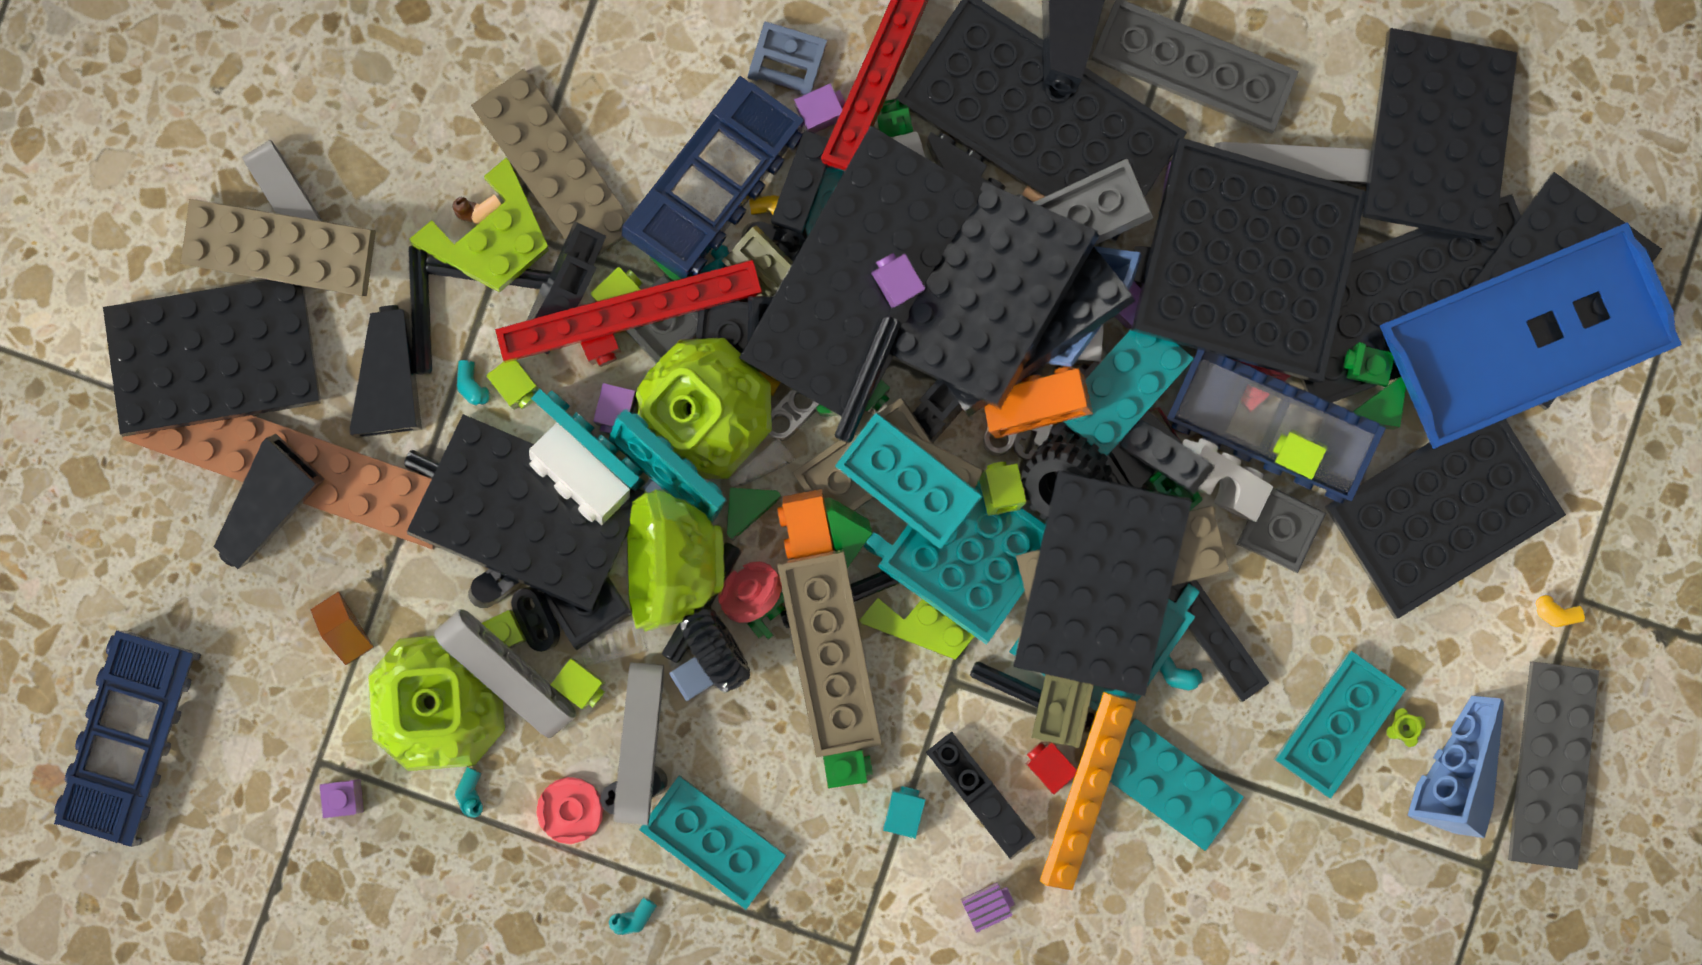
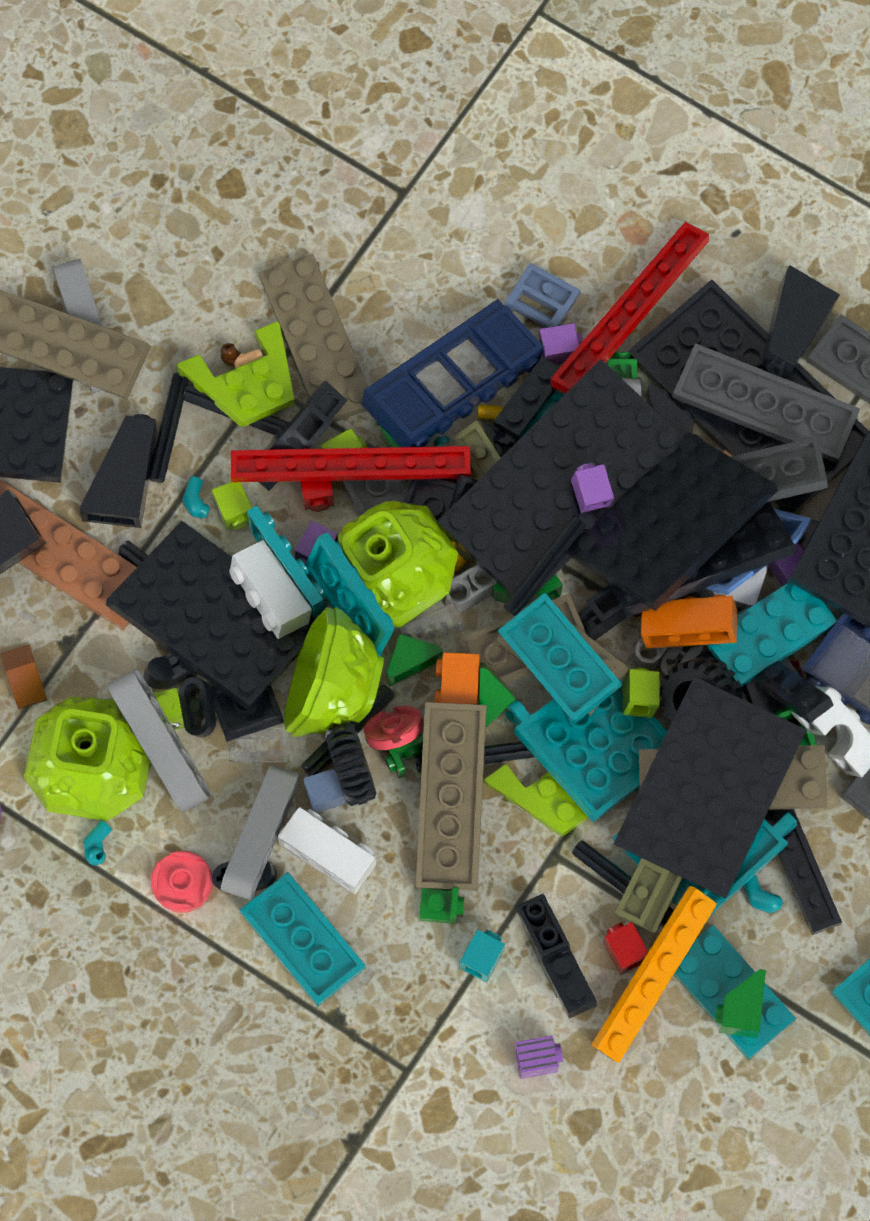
camera: 10 degrees right, 15 degrees down
(579, 684) = (220, 772): lime brick -> none
(632, 921) = (212, 992): teal arm -> none
(714, 740) = (327, 849): none -> white brick
(1059, 124) = (764, 401): none -> dark grey plate
(1188, 805) = (742, 1007): none -> green slope

